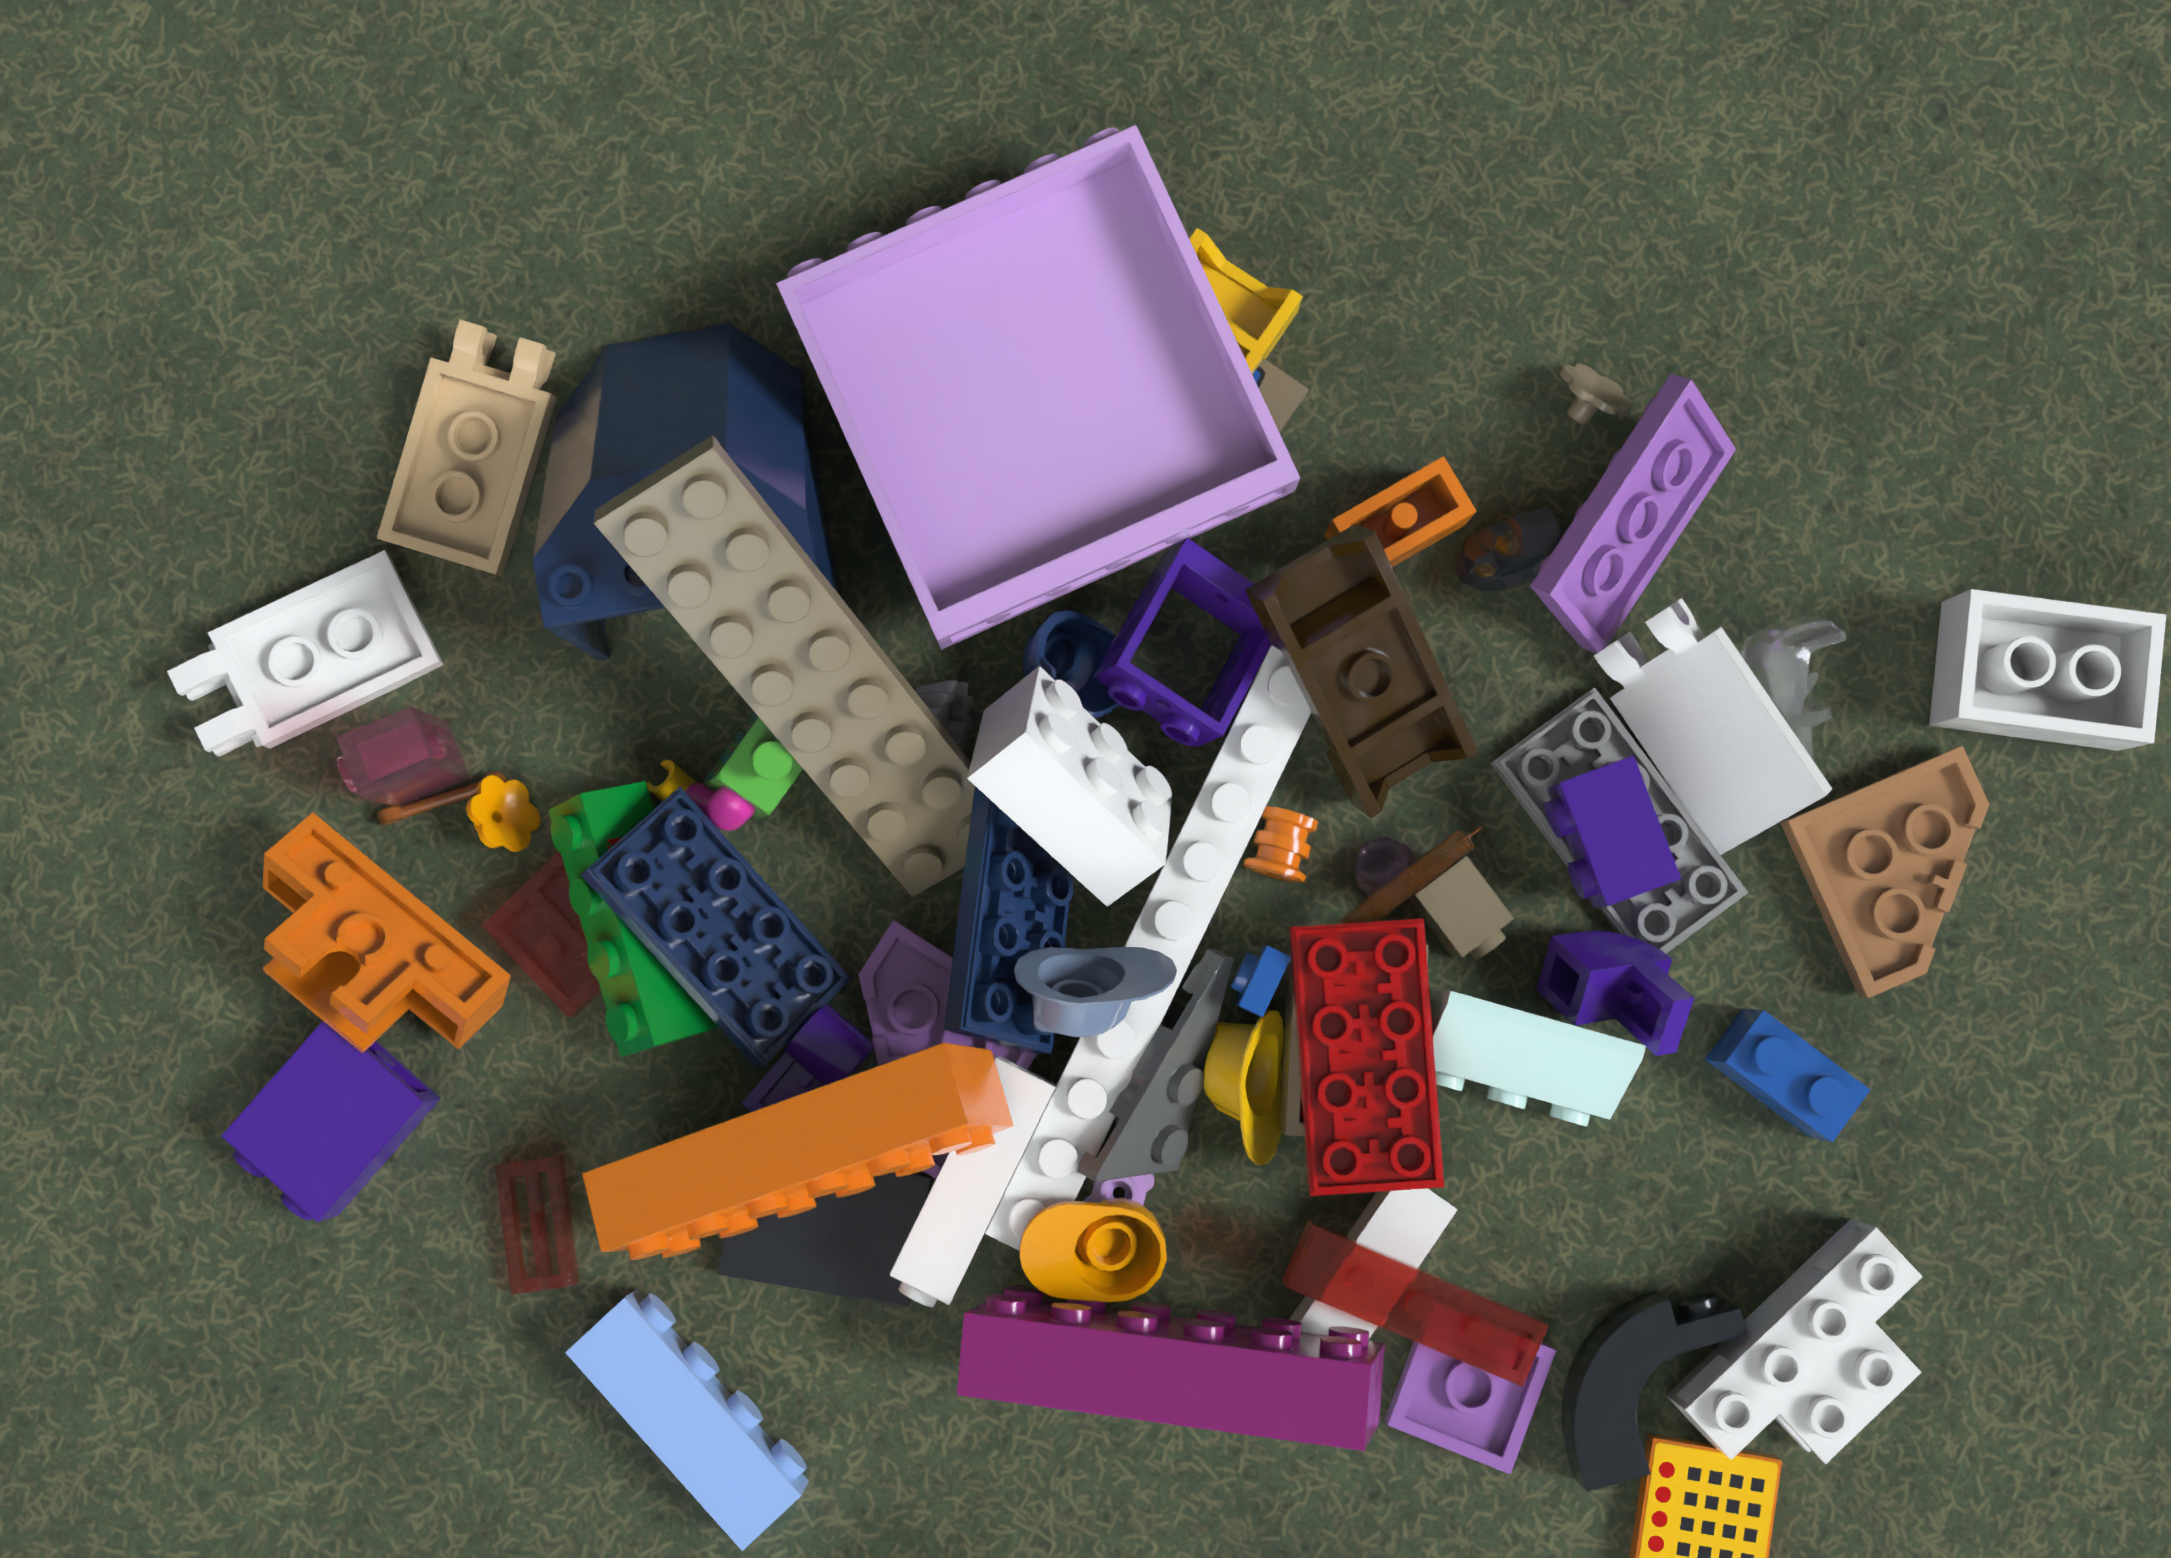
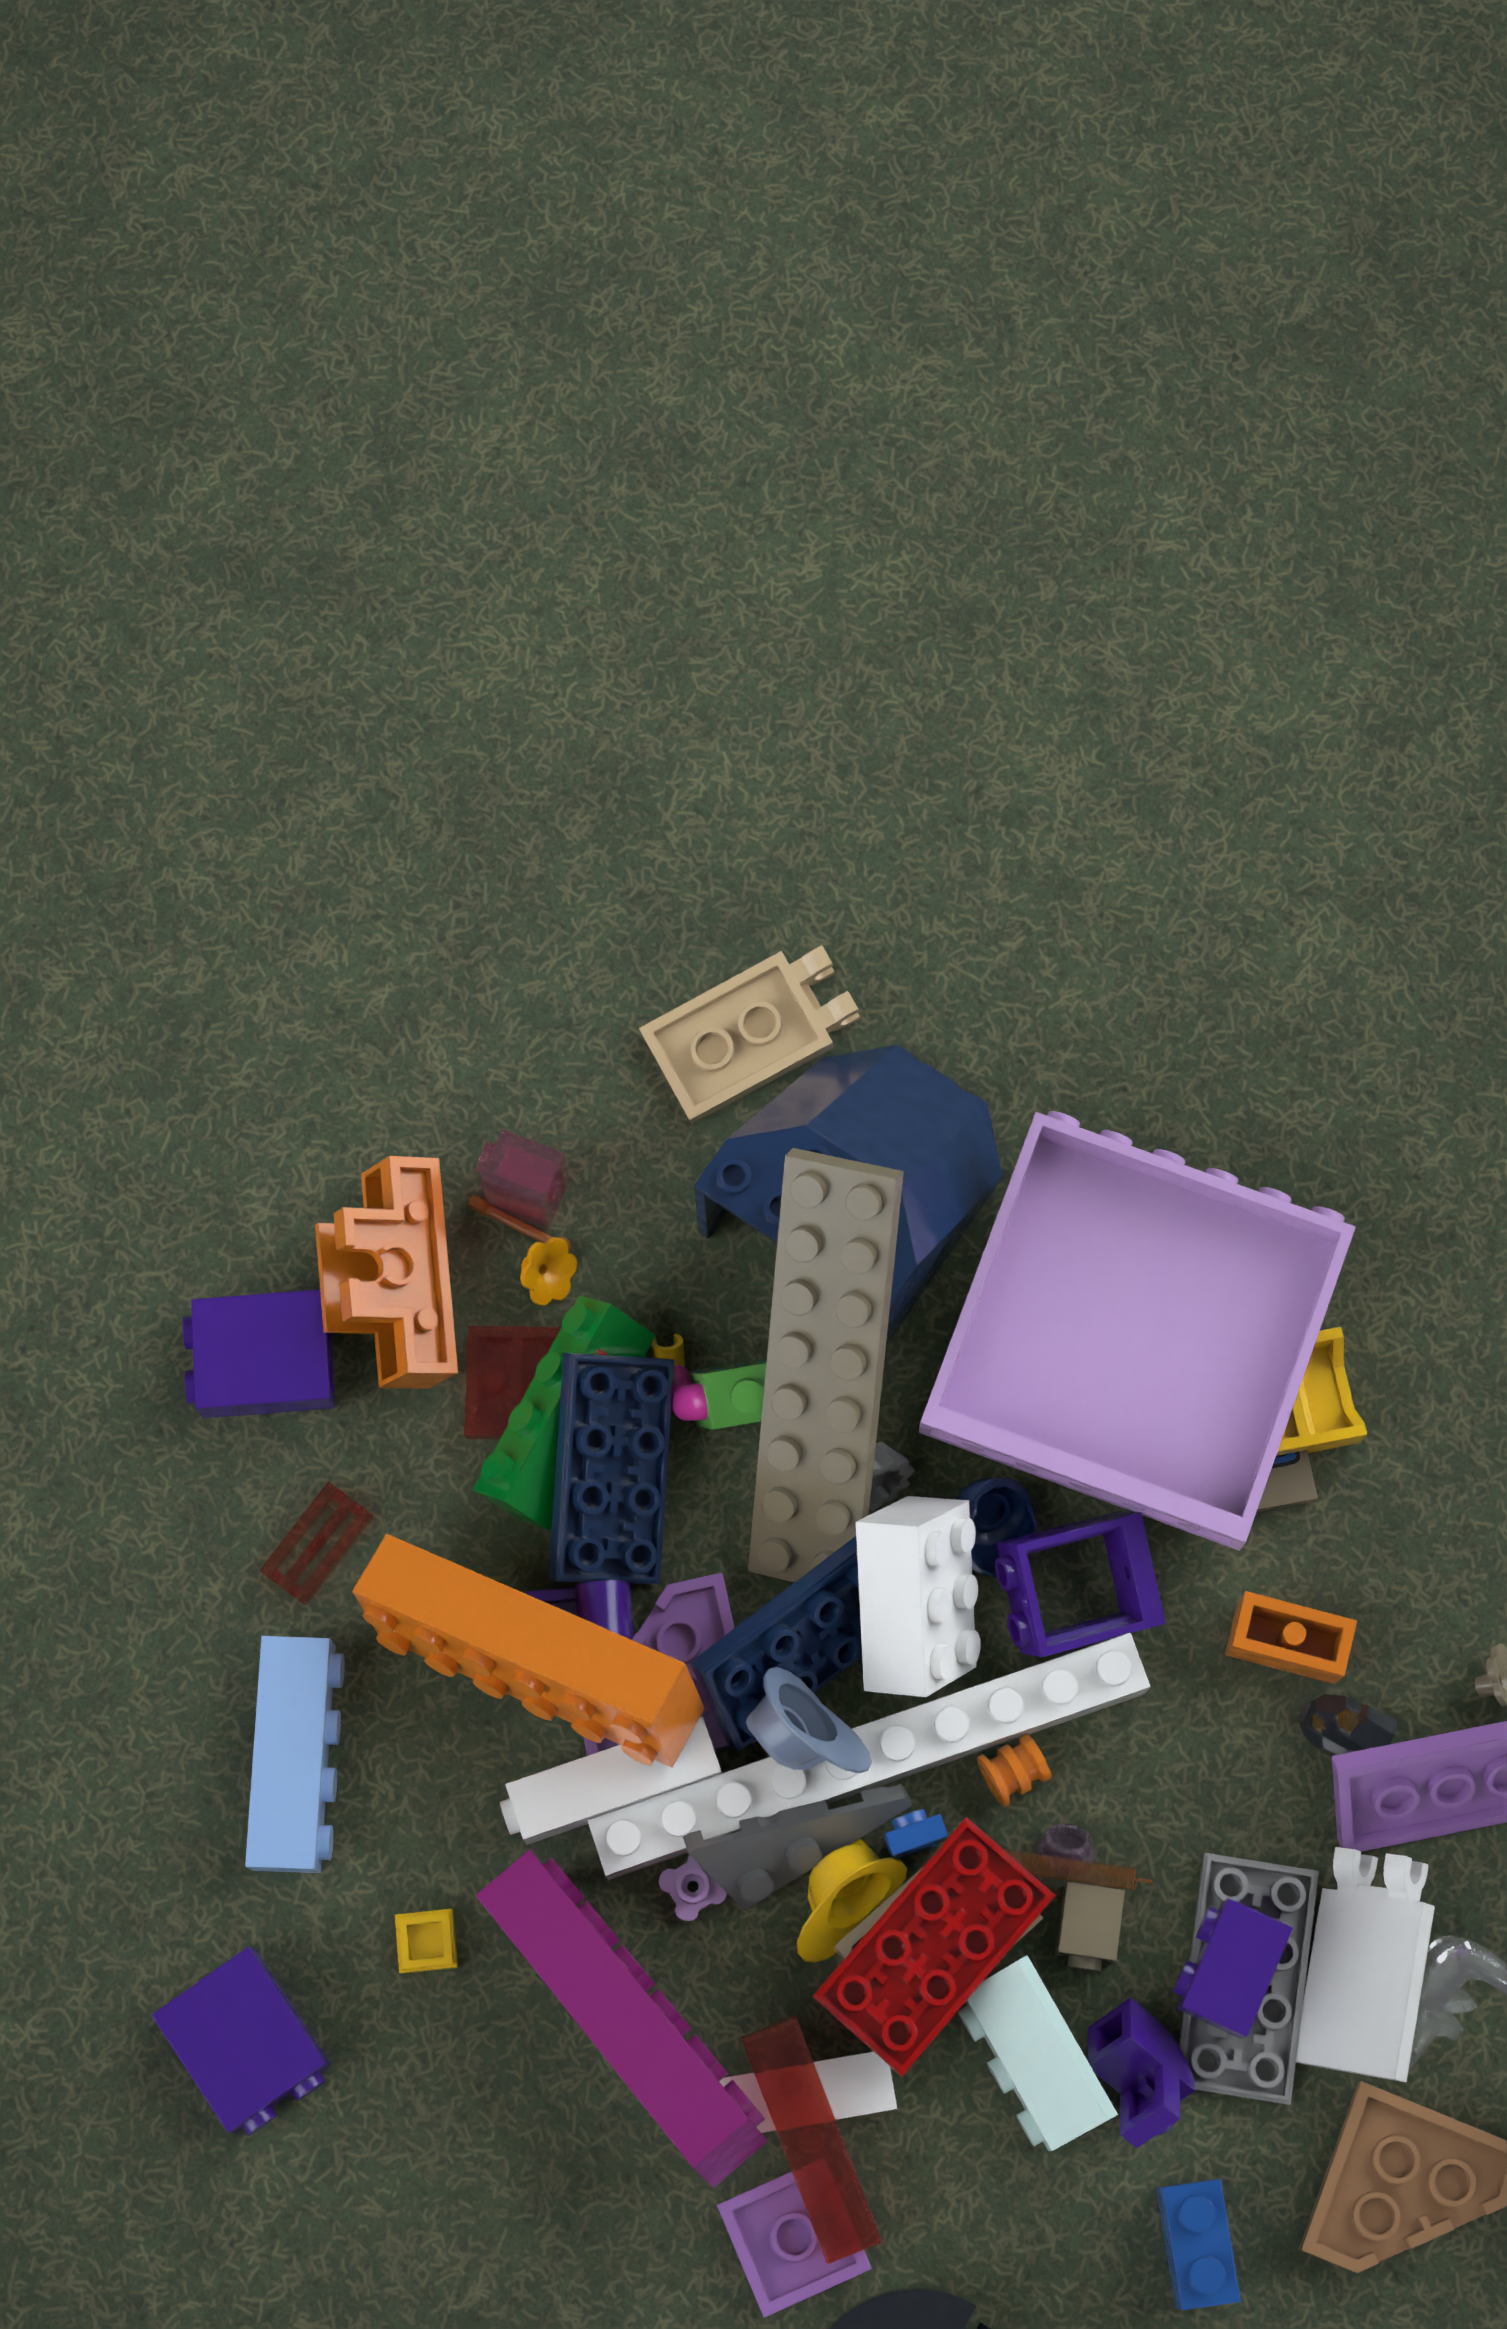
camera: 45 degrees right, 10 degrees down
(310, 657) = (528, 1062): white tile -> none
(838, 1246) = (485, 1736): black tile -> none
(949, 1450) = (426, 1941): none -> yellow tile
(1093, 1250) = (643, 1898): light orange cap -> none
(1361, 665) = (1172, 1703): dark brown piece -> none

